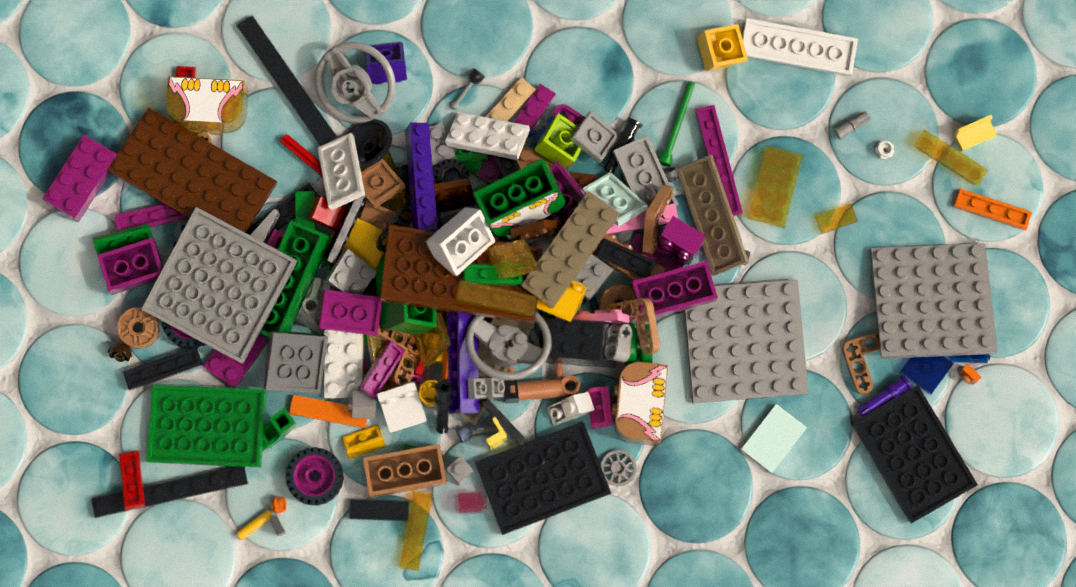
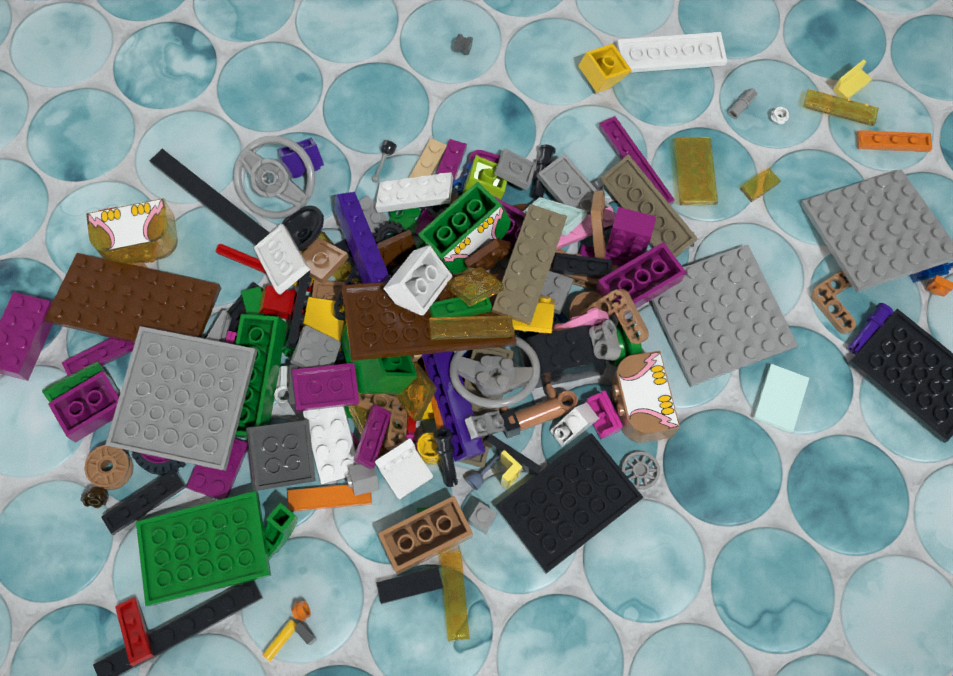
camera: 15 degrees left, 10 degrees down
(299, 473) = (315, 563): wheel -> none
(363, 442) = (374, 518): yellow slope -> none
(471, 503) = (504, 549): clear pink brick -> none
(665, 157) = (587, 170): green piece -> none
(927, 371) = (898, 294): clear blue plate -> none

